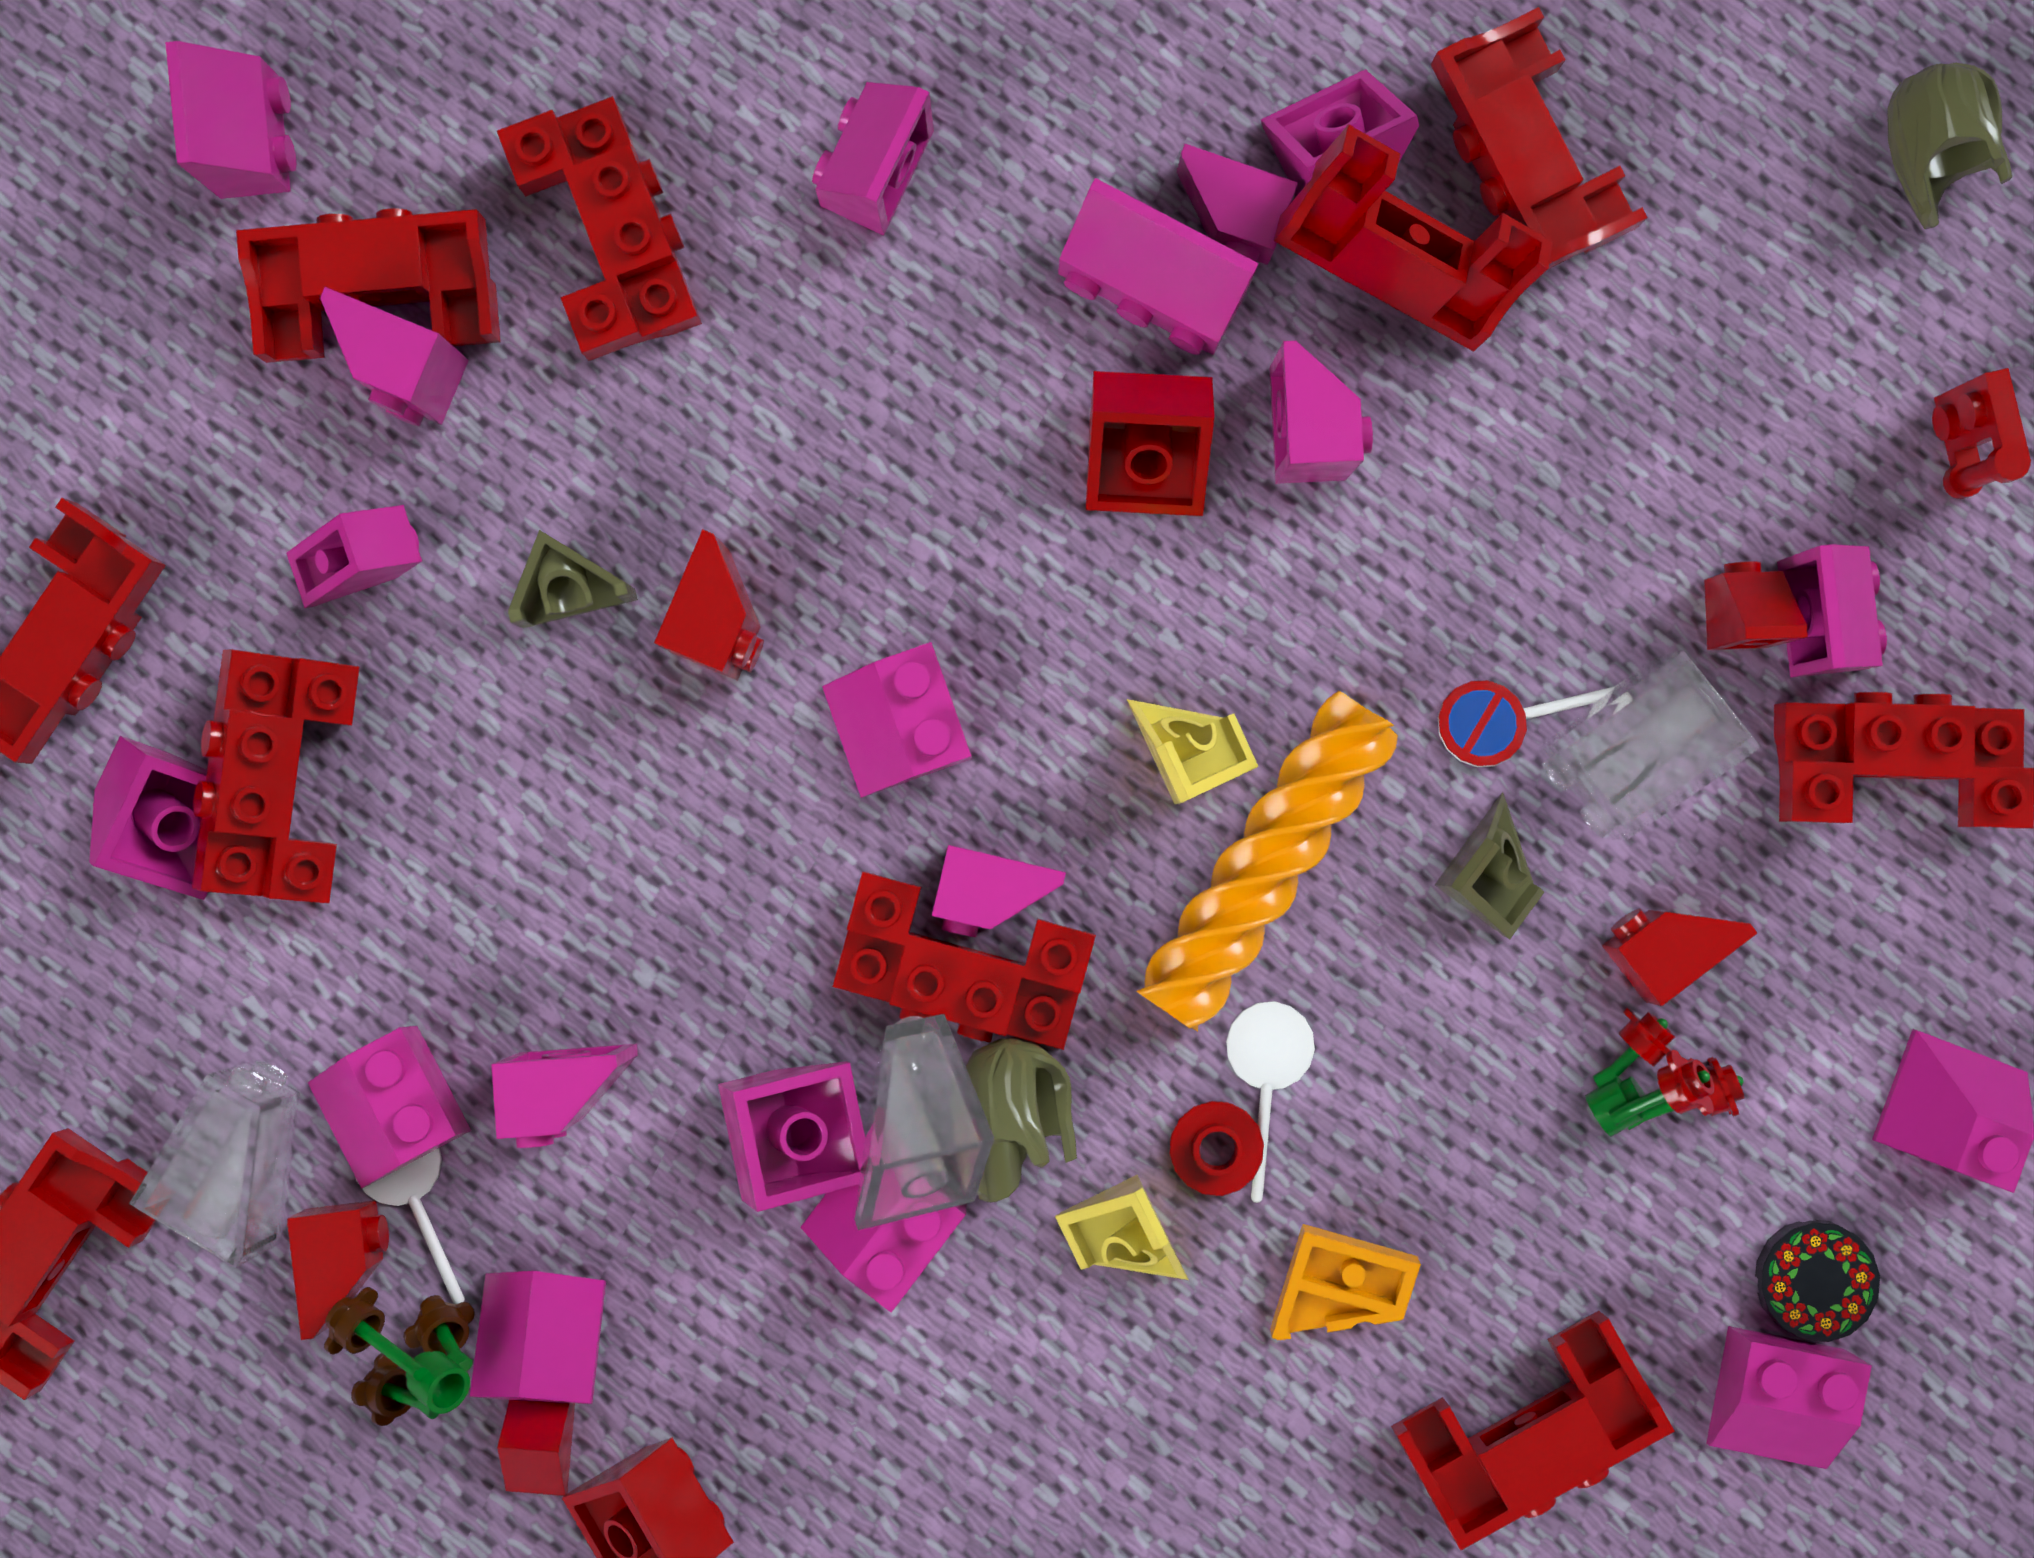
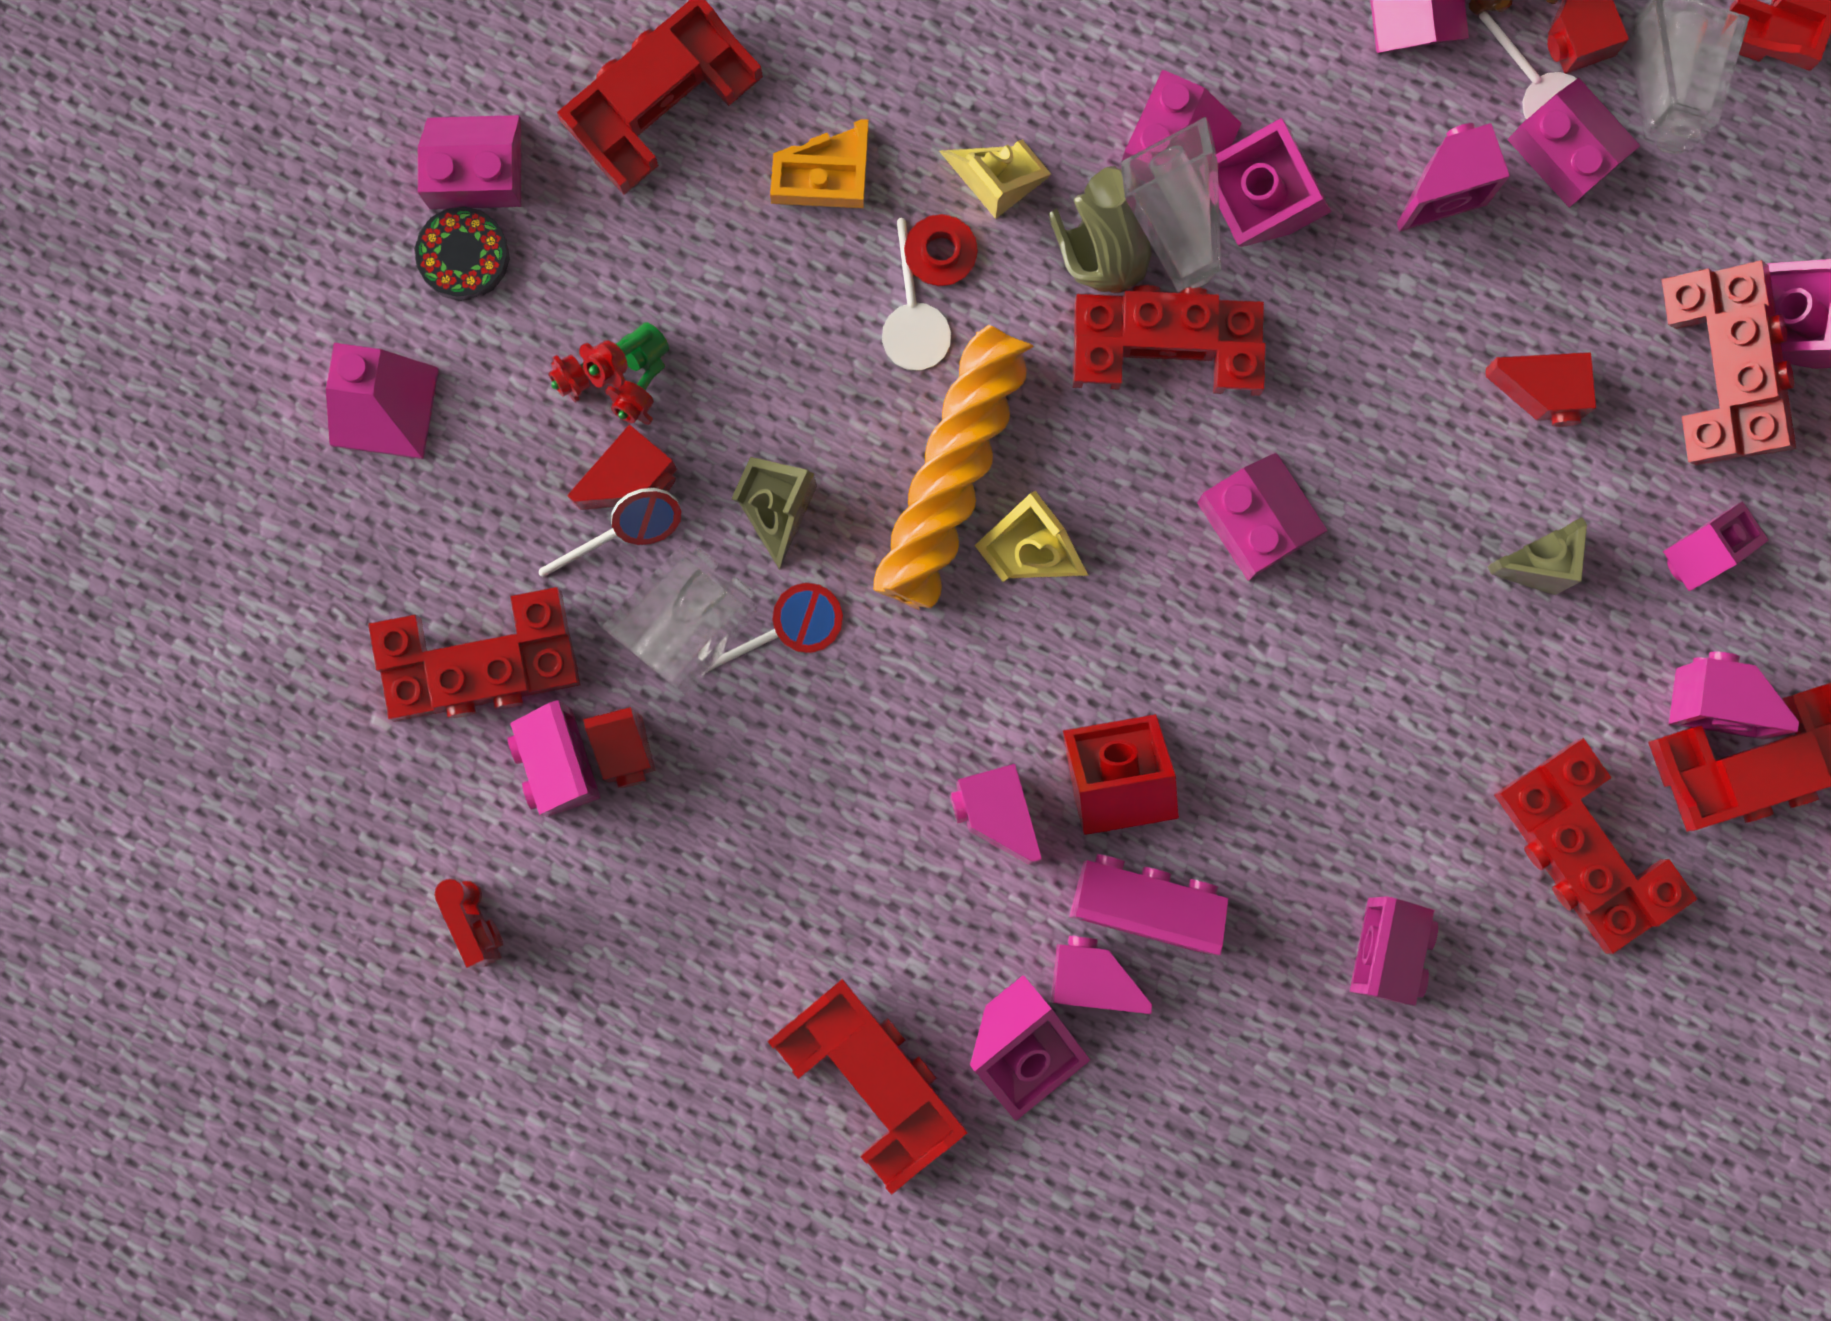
camera: 170 degrees right, 5 degrees down
(504, 800) = (1548, 385): none -> red slope
(712, 613) = (1428, 557): red slope -> none
(988, 889) = (1162, 402): dark pink slope -> none
(1403, 254) = (956, 962): red bracket -> none
(1675, 890) = (637, 519): none -> piece
(1942, 129) = (546, 1169): olive hair -> none

